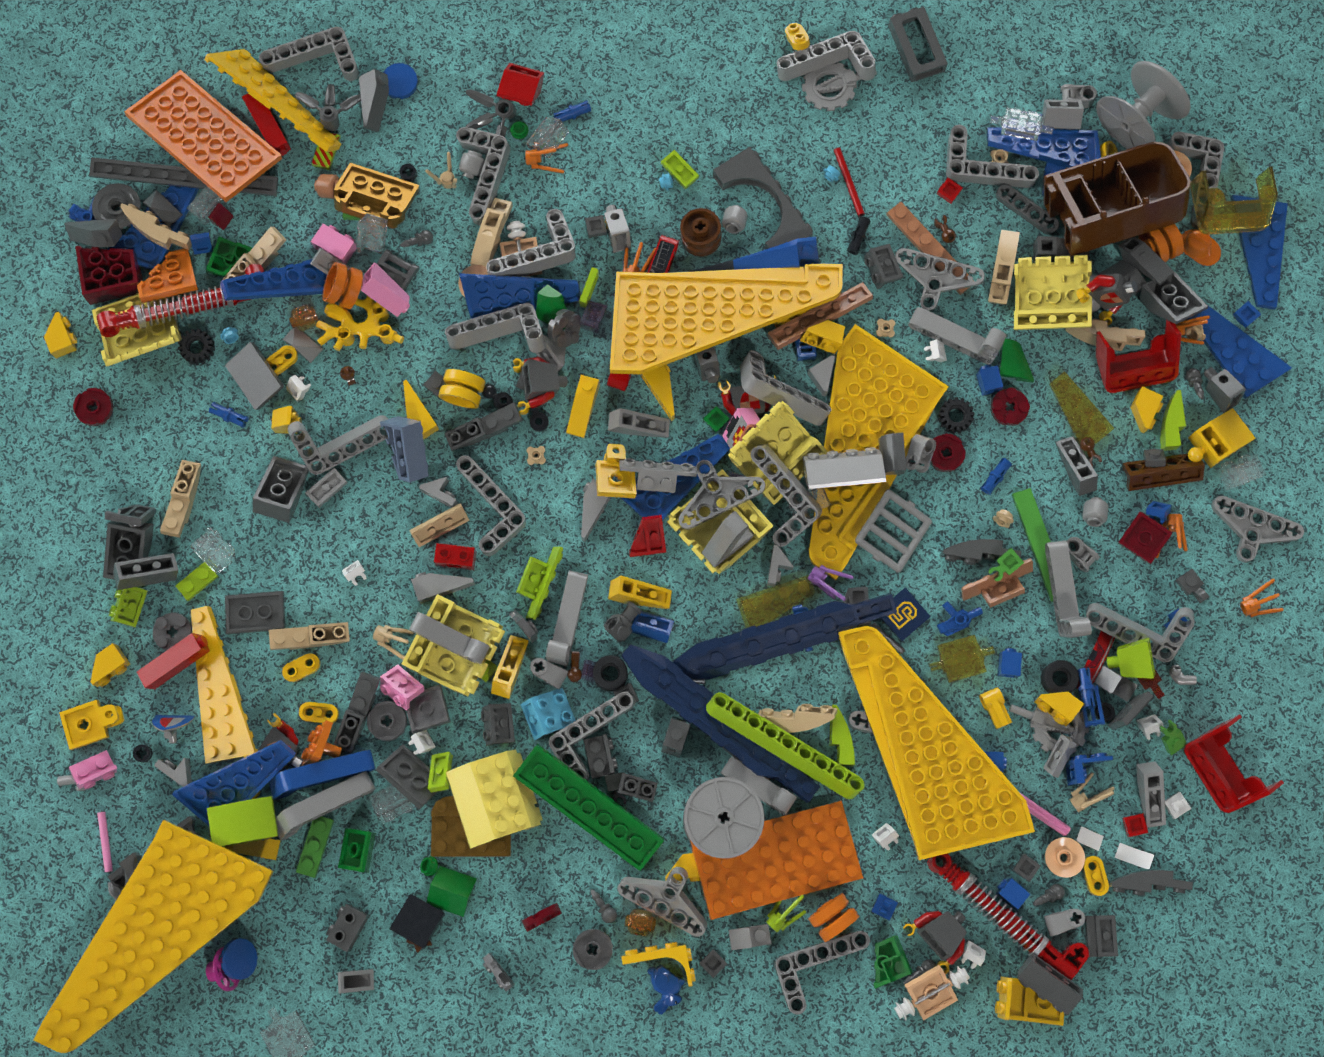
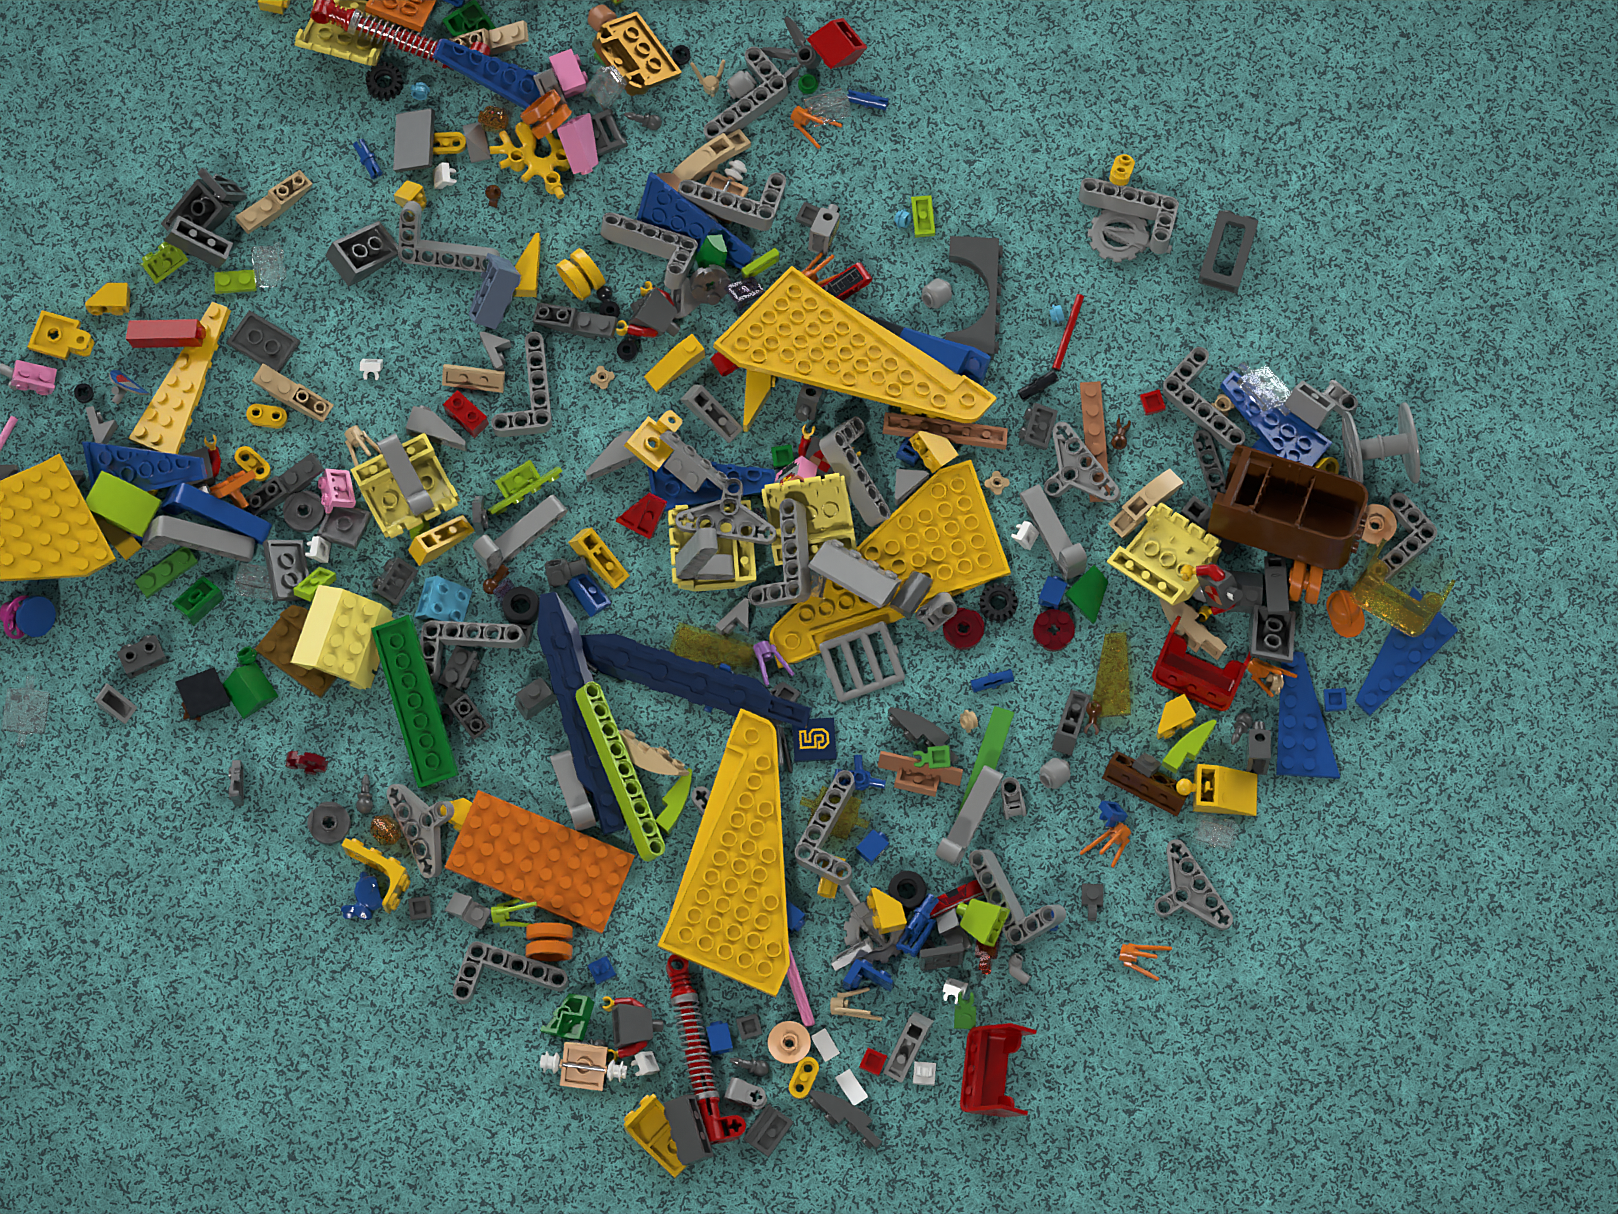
camera: 40 degrees right, 5 degrees down
(89, 397) = (261, 83): dark red plate -> none
(165, 623) = (180, 299): flat silver plate -> none
(326, 487) = (402, 279): light grey plate -> none
(434, 383) = (562, 252): dark grey plate -> none
(551, 674) = (470, 570): light grey piece -> none
(700, 232) = (896, 284): reddish brown wheel -> none
(740, 808) = (518, 785): light grey piece -> none
(885, 835) = (648, 910): white tile -> none
(969, 678) = (824, 829): none -> light grey beam
(1145, 538) = (1081, 827): dark red plate -> none

